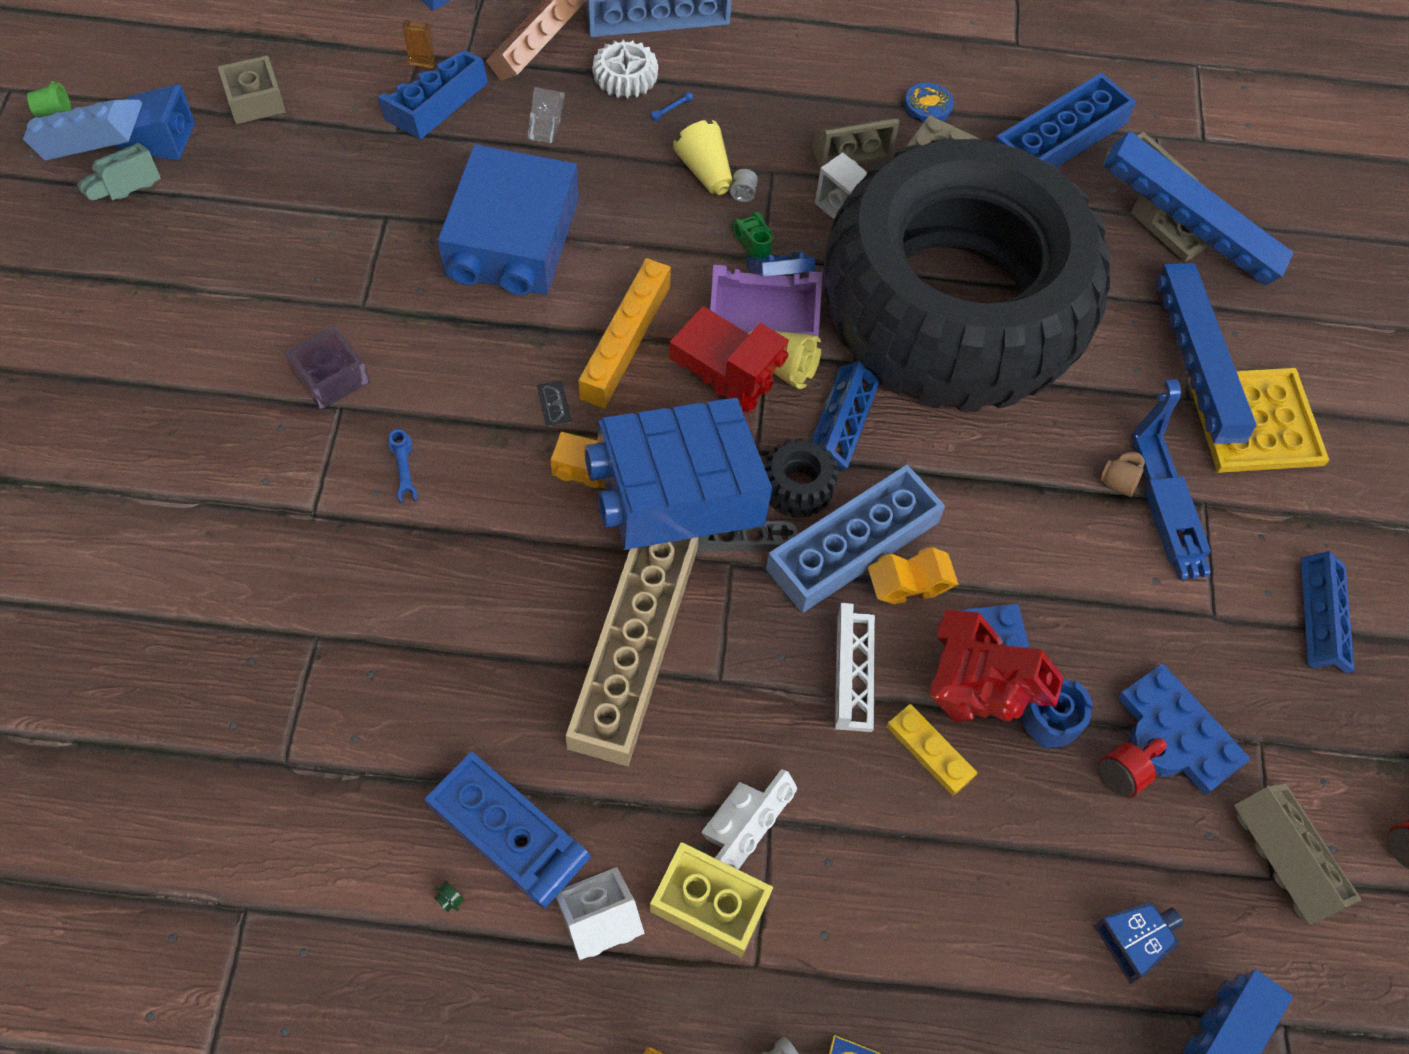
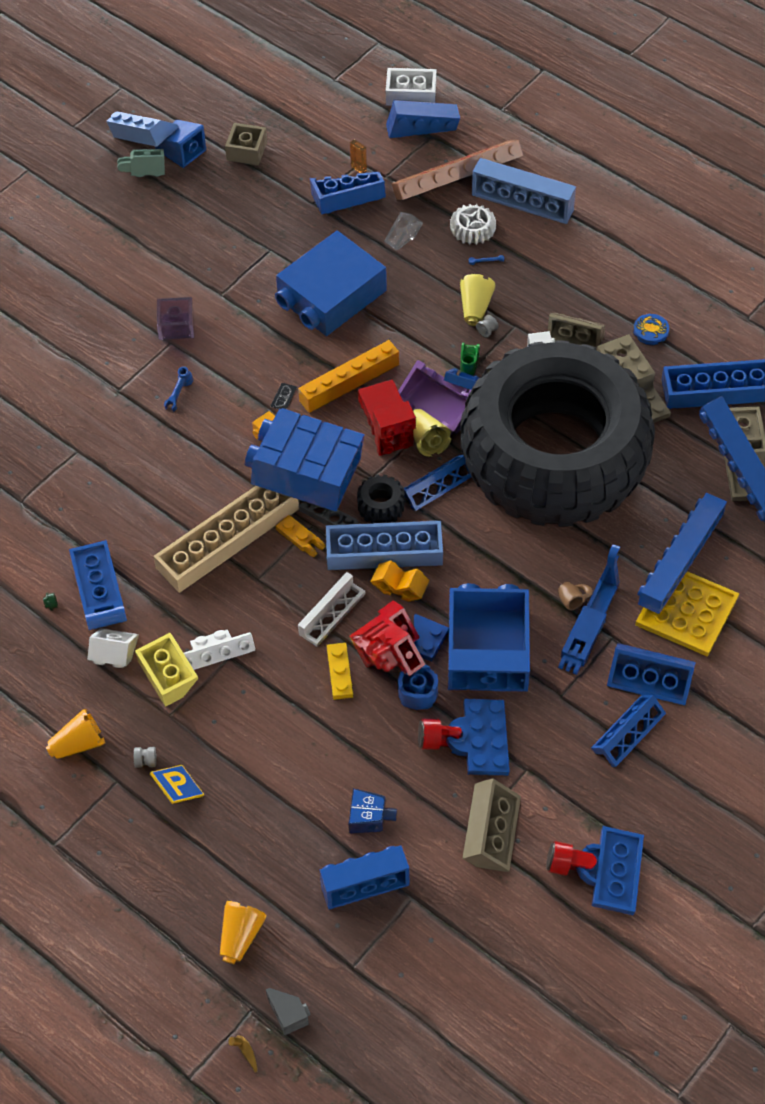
camera: 40 degrees right, 5 degrees down
(48, 100) = (136, 104): bright green piece -> none
(729, 586) = (299, 535): none -> light orange hinge
(1087, 589) = (489, 638): none -> blue brick
(1293, 523) = (651, 674): none -> blue slope

